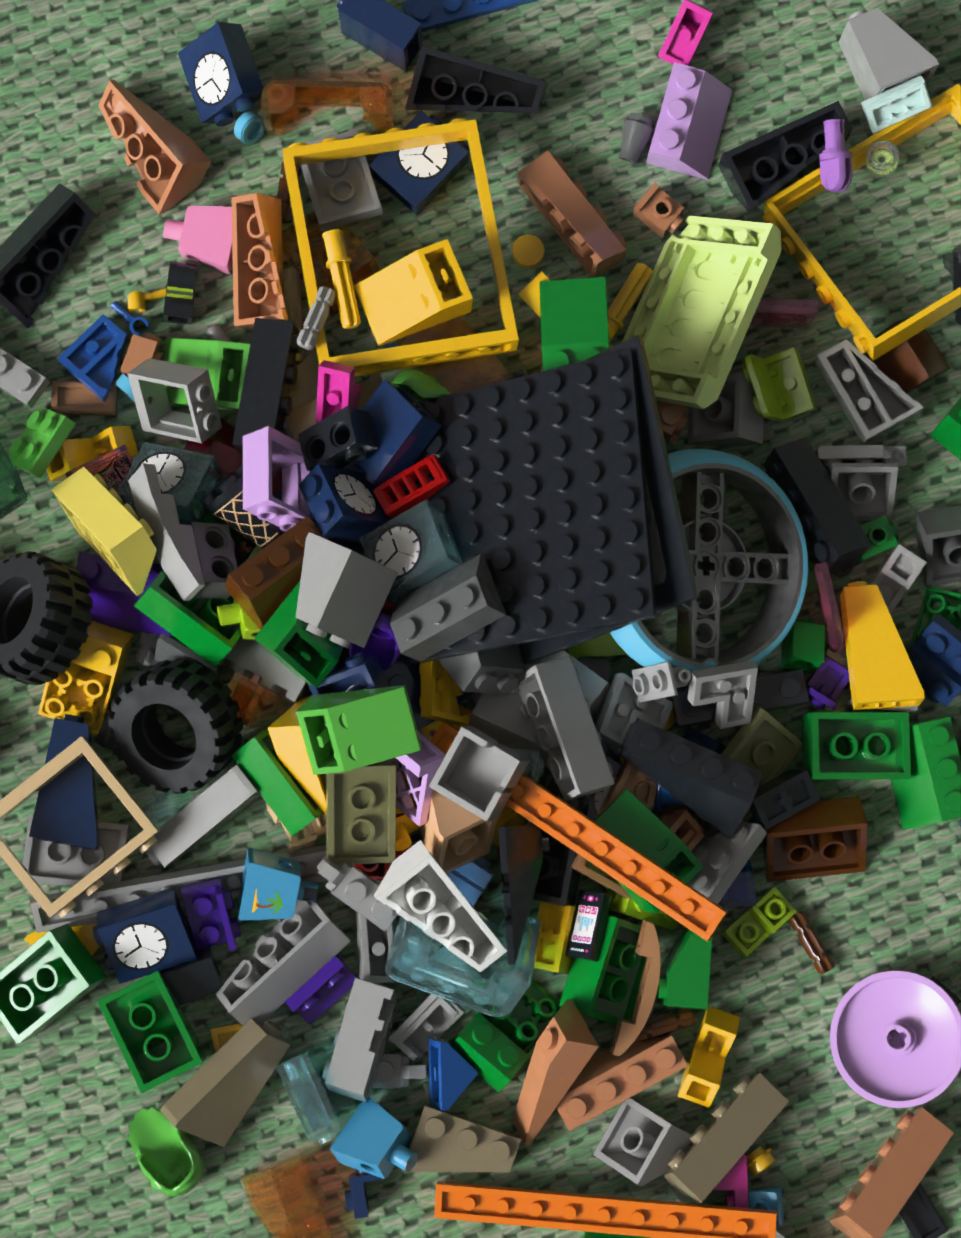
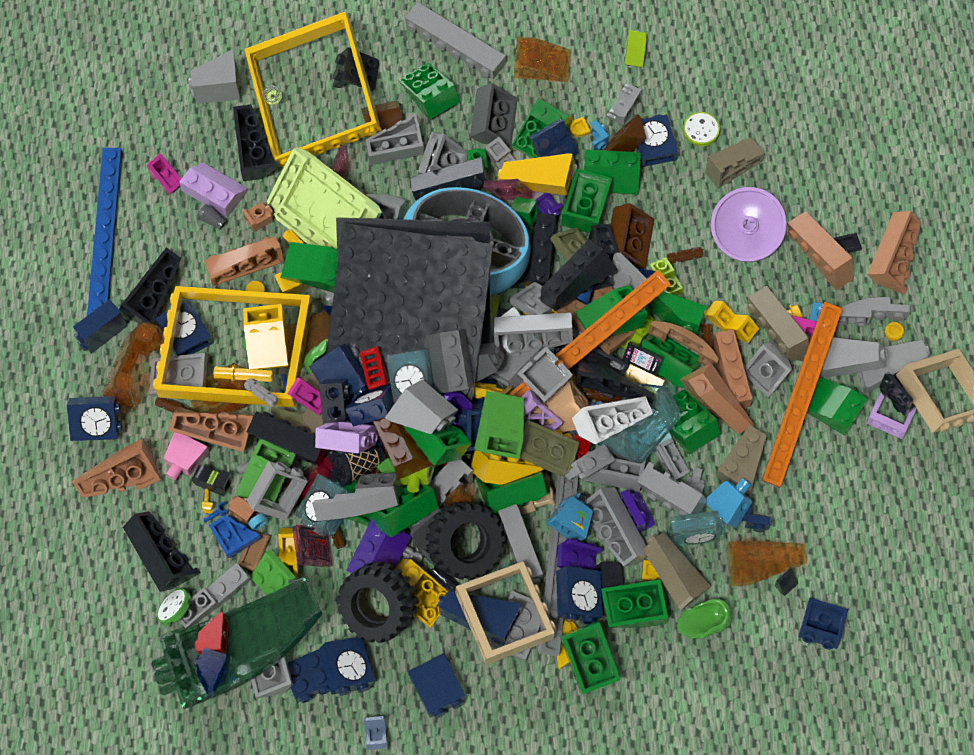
camera: 70 degrees left, 15 degrees down
(108, 526) = (341, 540): light yellow slope -> none
(249, 127) = (129, 415): medium azure tile -> none
(447, 1074) = (703, 456): blue slope -> none
(659, 681) = (522, 277): light grey hinge -> none
(730, 687) = (538, 245): light grey plate -> none
(779, 385) = (377, 180): lime bracket -> none
(835, 159) = (266, 115): medium lavender arm -> none
(896, 104) = (245, 79): light aqua plate -> none

